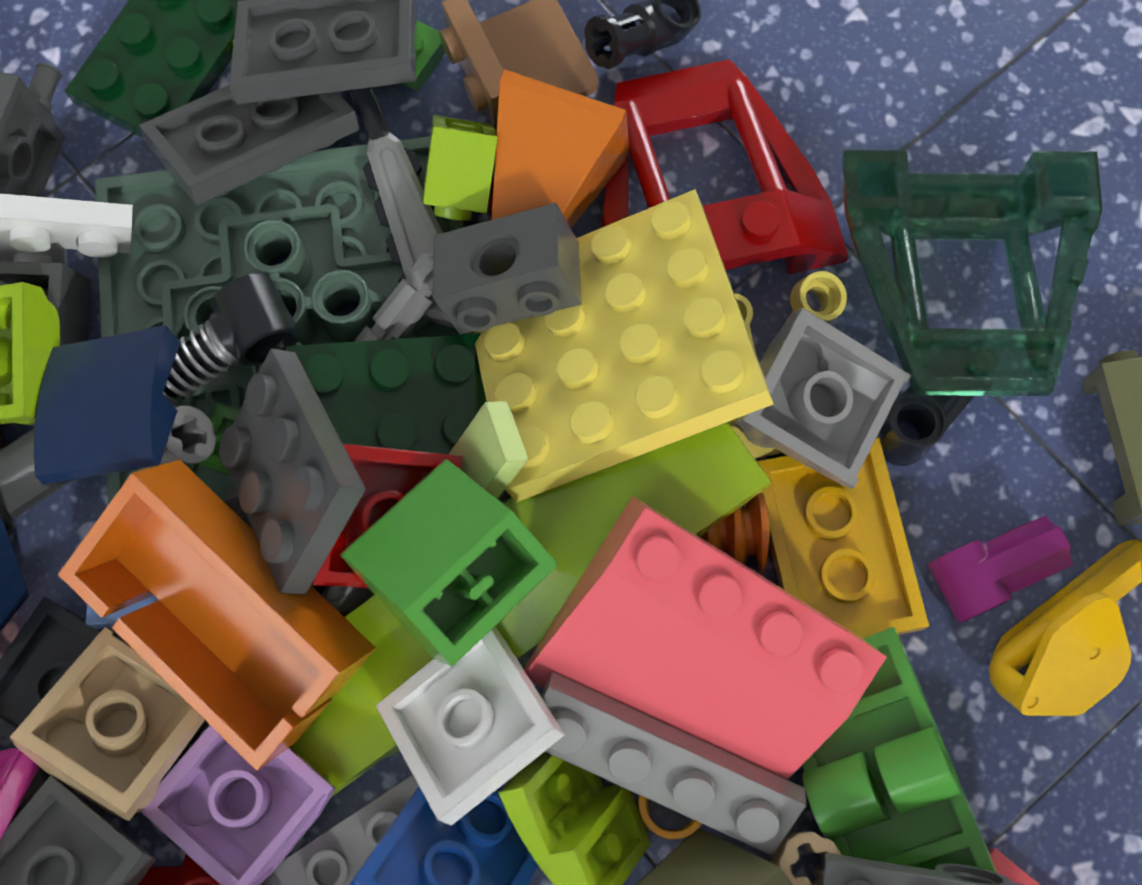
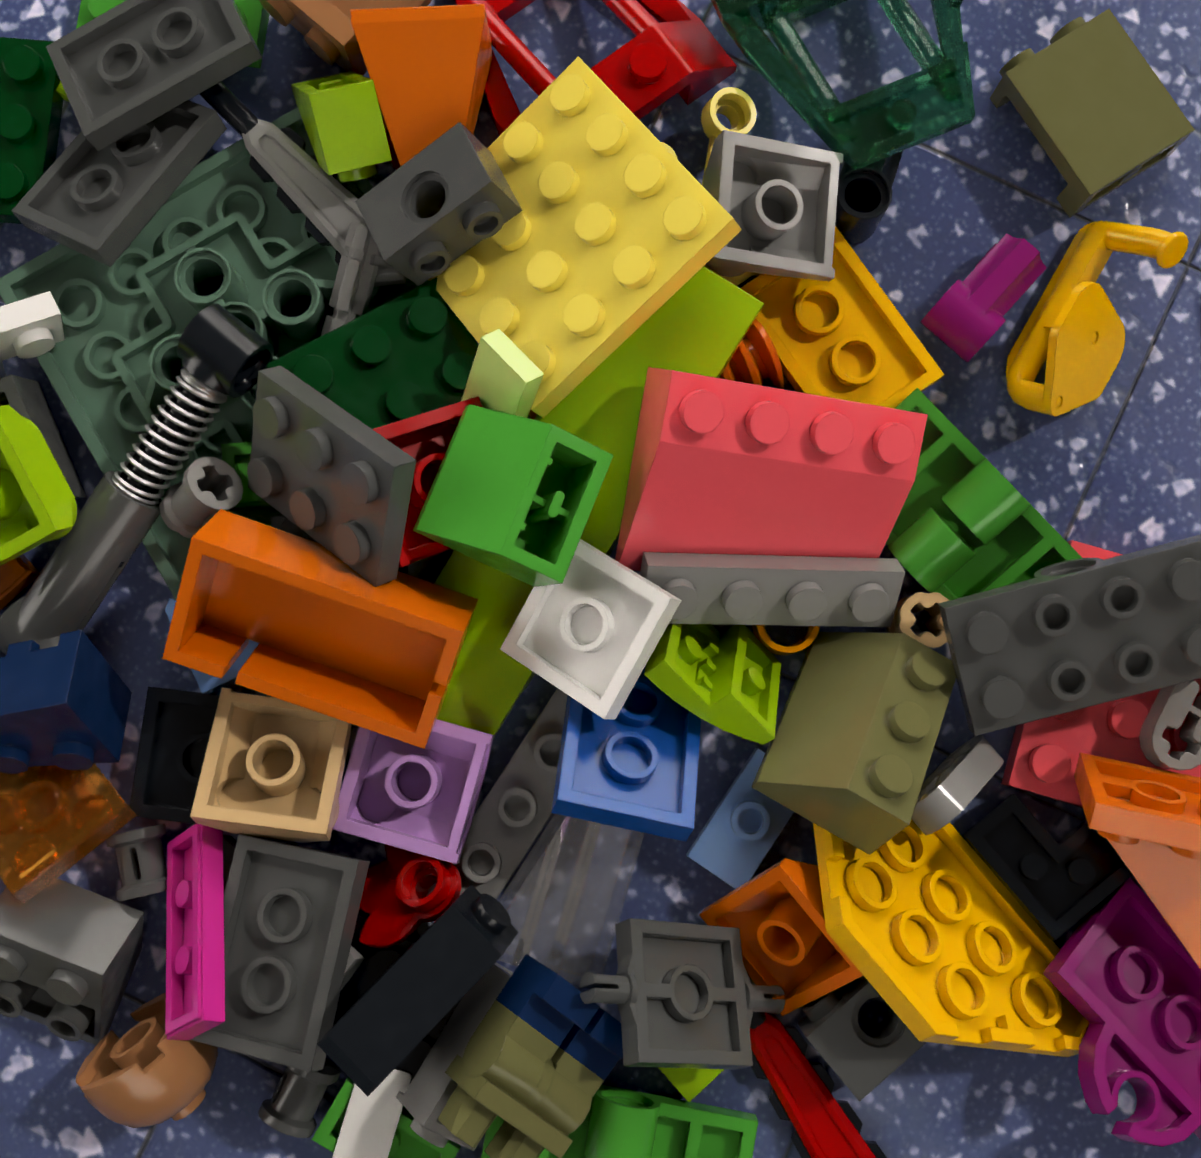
camera: 25 degrees left, 10 degrees up
(104, 405) = (126, 488): dark blue slope -> none

